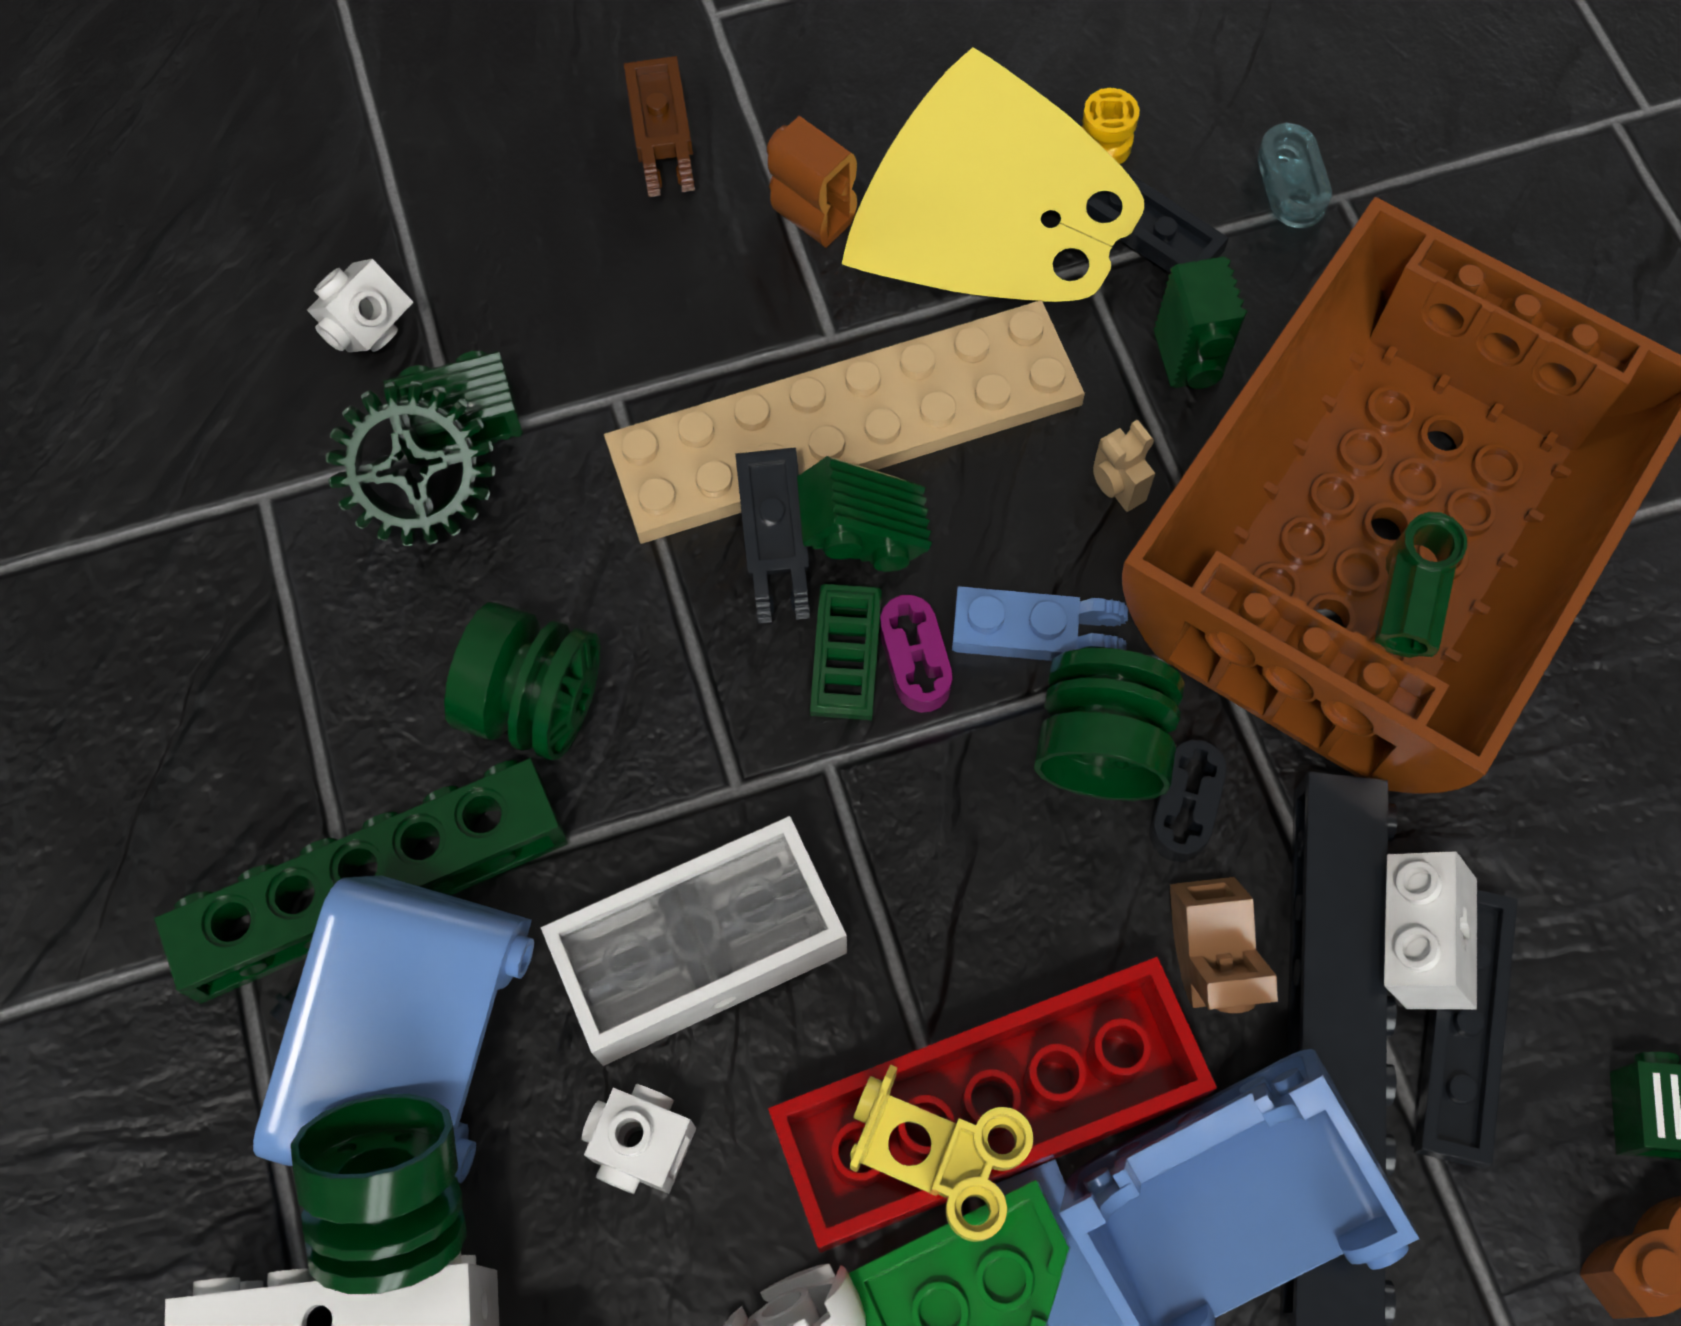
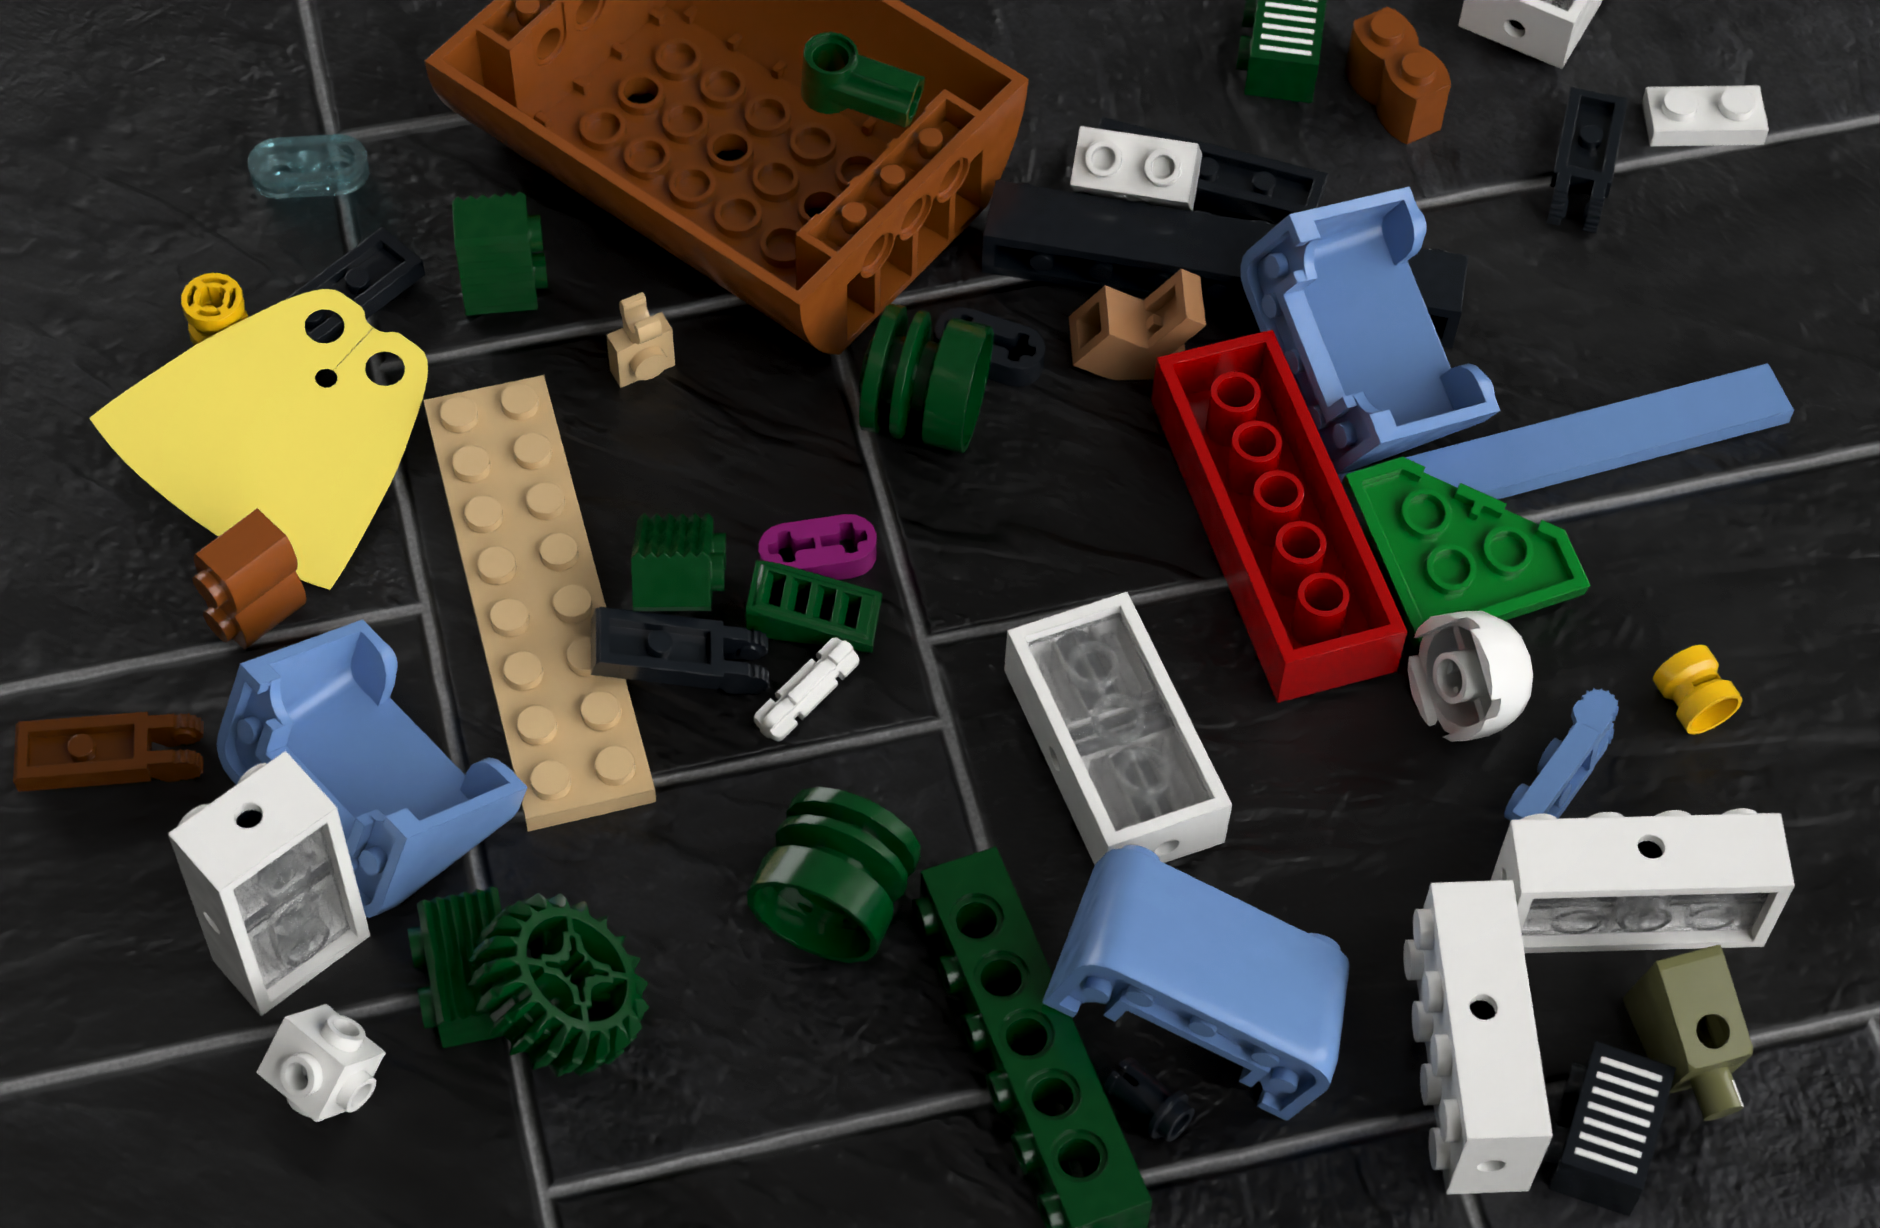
camera: 90 degrees left, 10 degrees down
(379, 1193) = (1373, 941): dark green wheel -> none
(468, 209) = (271, 881): none -> white brick
(646, 300) = (394, 789): none -> medium blue windscreen
(655, 1157) = (1303, 794): white brick -> none
(756, 655) = (806, 689): none -> white axle
(958, 1154) = (1327, 539): light yellow piece -> none
(1031, 623) = (796, 451): medium blue hinge -> none

